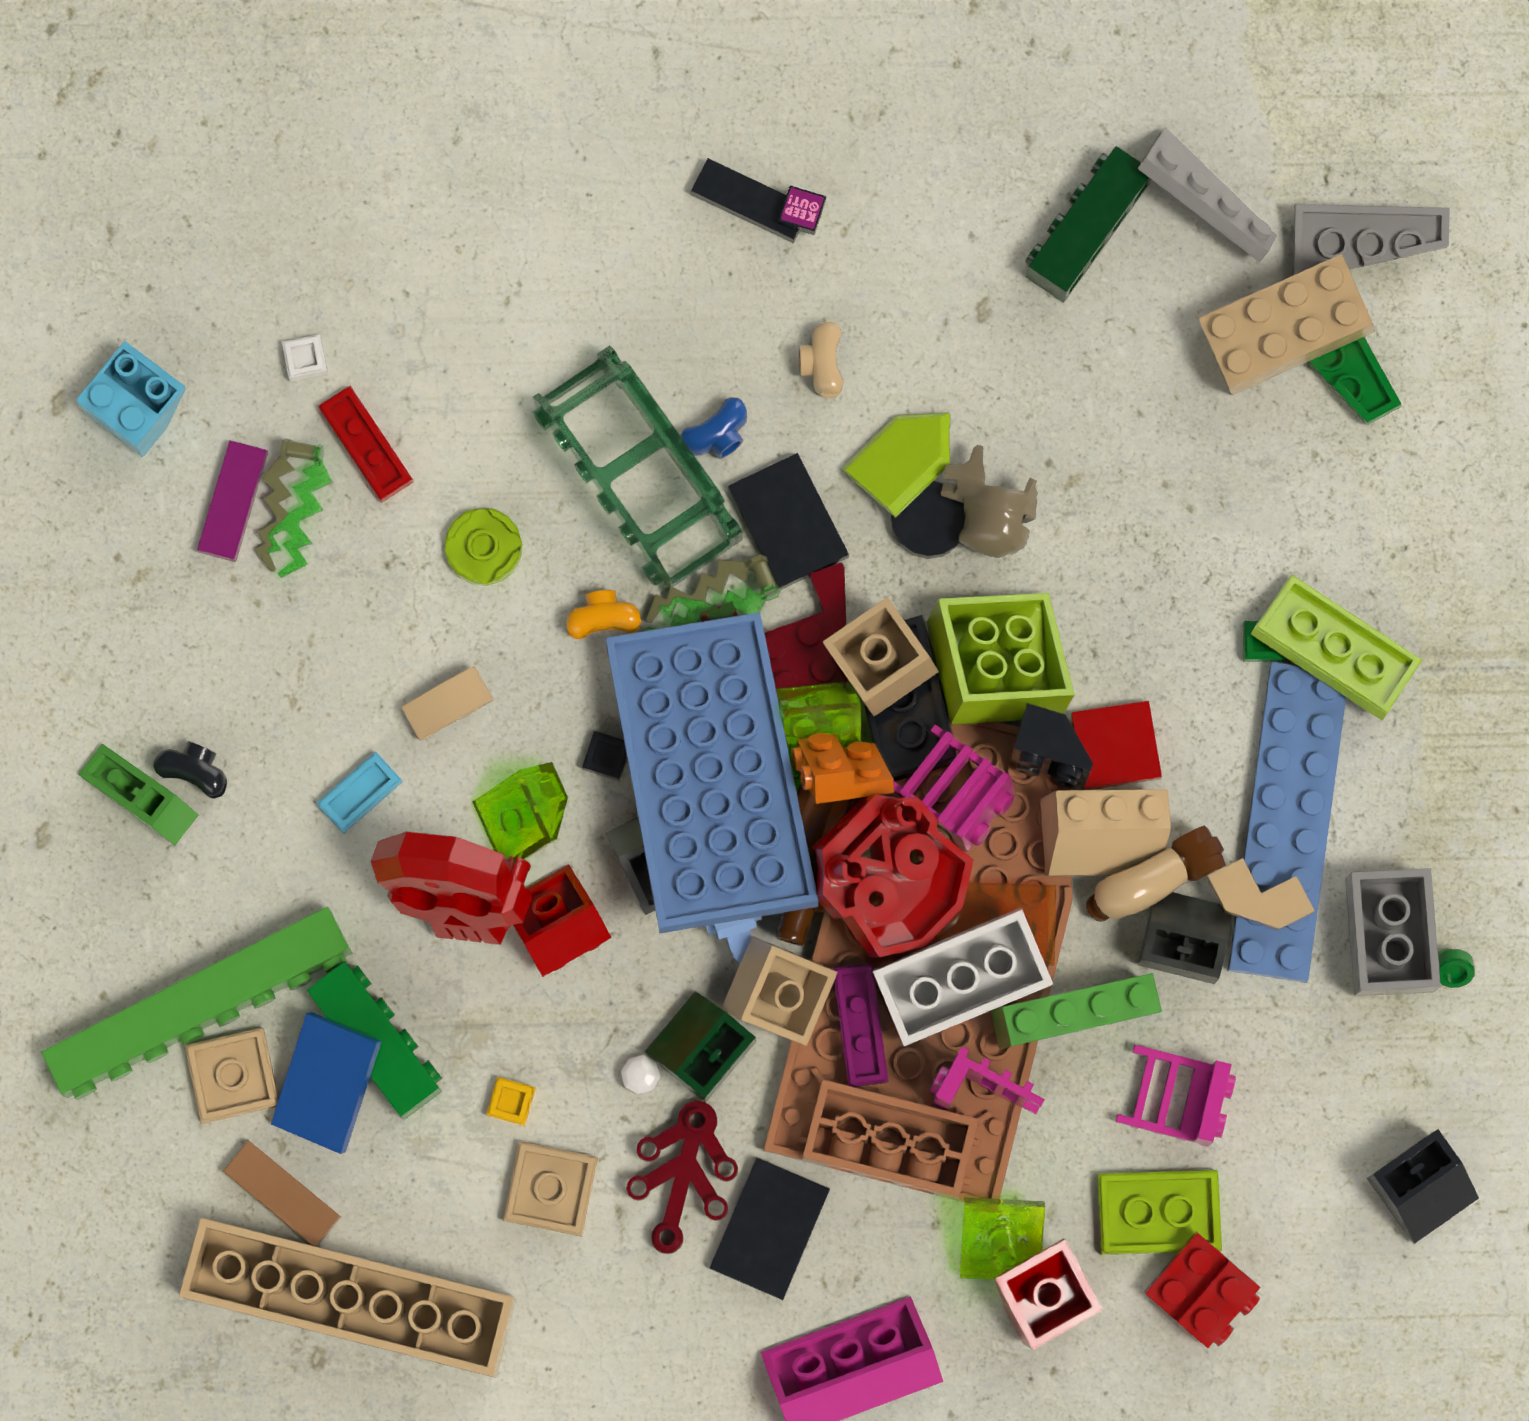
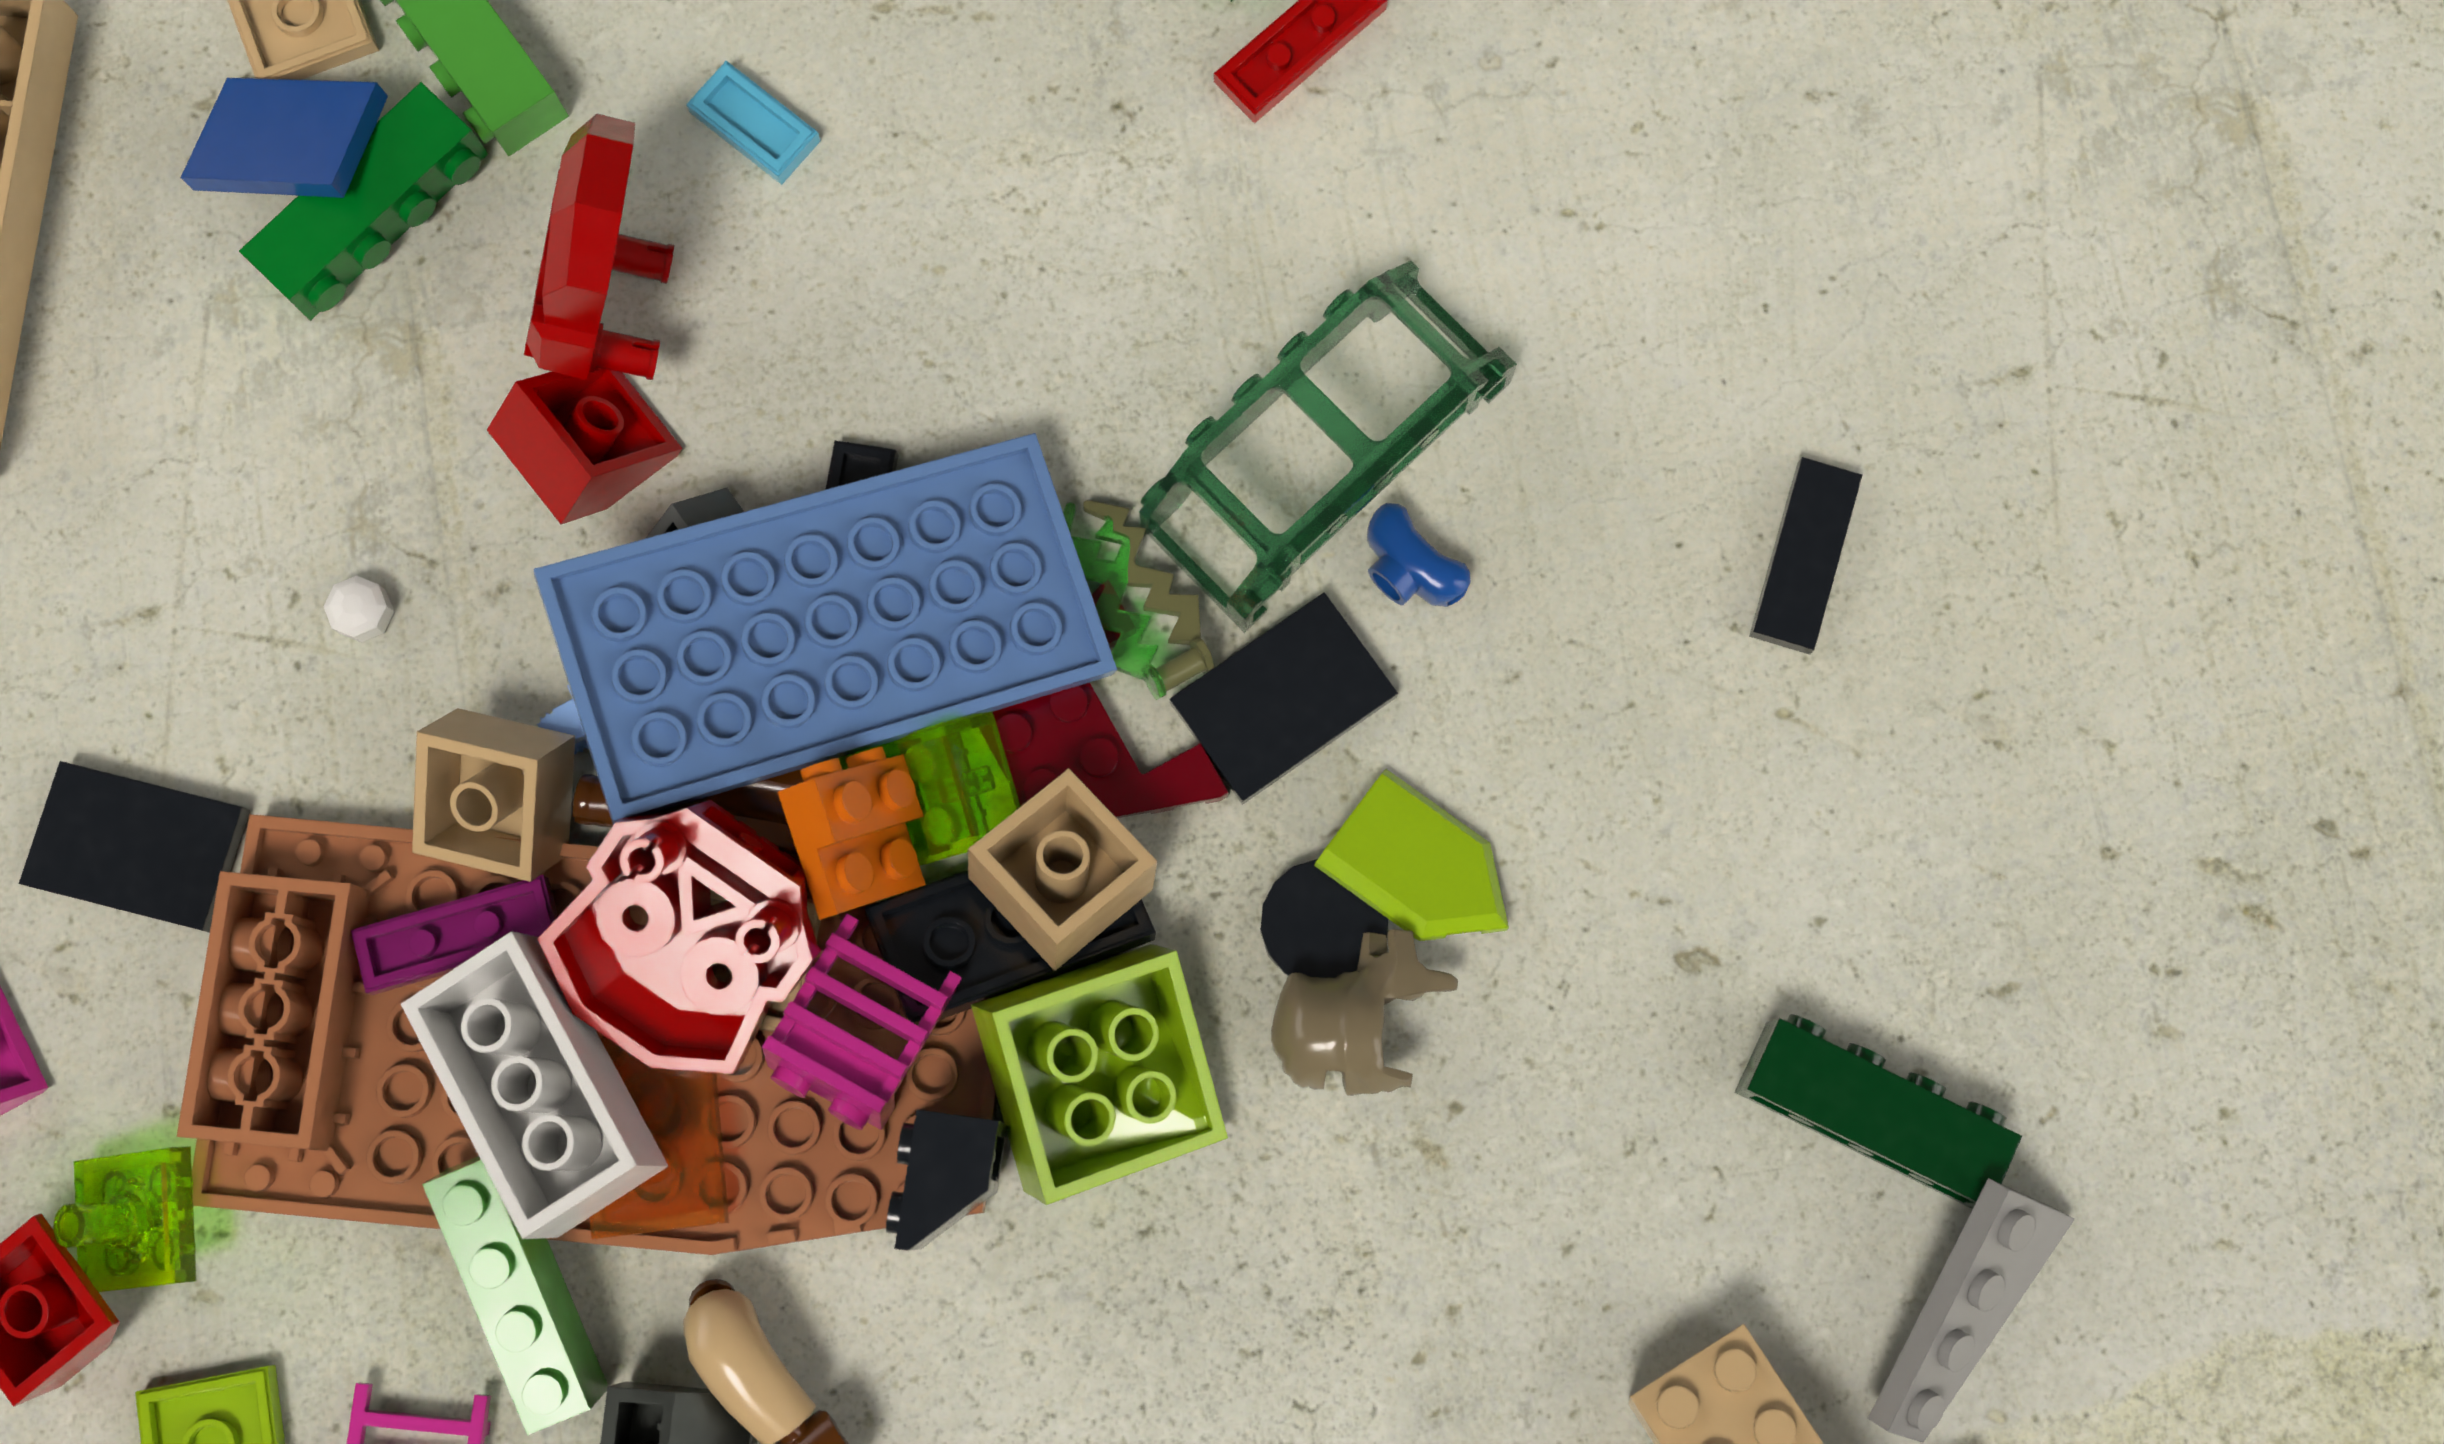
camera: 80 degrees right, 0 degrees up
(282, 1194) = (126, 114): medium nougat tile -> none
(447, 703) = (905, 222): tan slope -> none
(483, 546) = (1167, 239): lime tile -> none
(511, 1101) = (299, 422): yellow tile -> none
(523, 811) = (747, 364): clear neon green slope -> none
(550, 1189) = (169, 502): tan tile -> none
(601, 614) = (1084, 431): light orange piece -> none
(684, 1169) = (212, 701): dark red plant -> none
(701, 1046) = (397, 681): dark green slope -> none
(802, 210) = (1803, 634): tile -> none
(820, 360) = (1559, 706): tan piece -> none
(949, 1081) = (376, 1126): dark pink plate -> none
(1102, 830) = (831, 1291): tan slope -> none
(1119, 744) = (990, 1292): red tile -> none

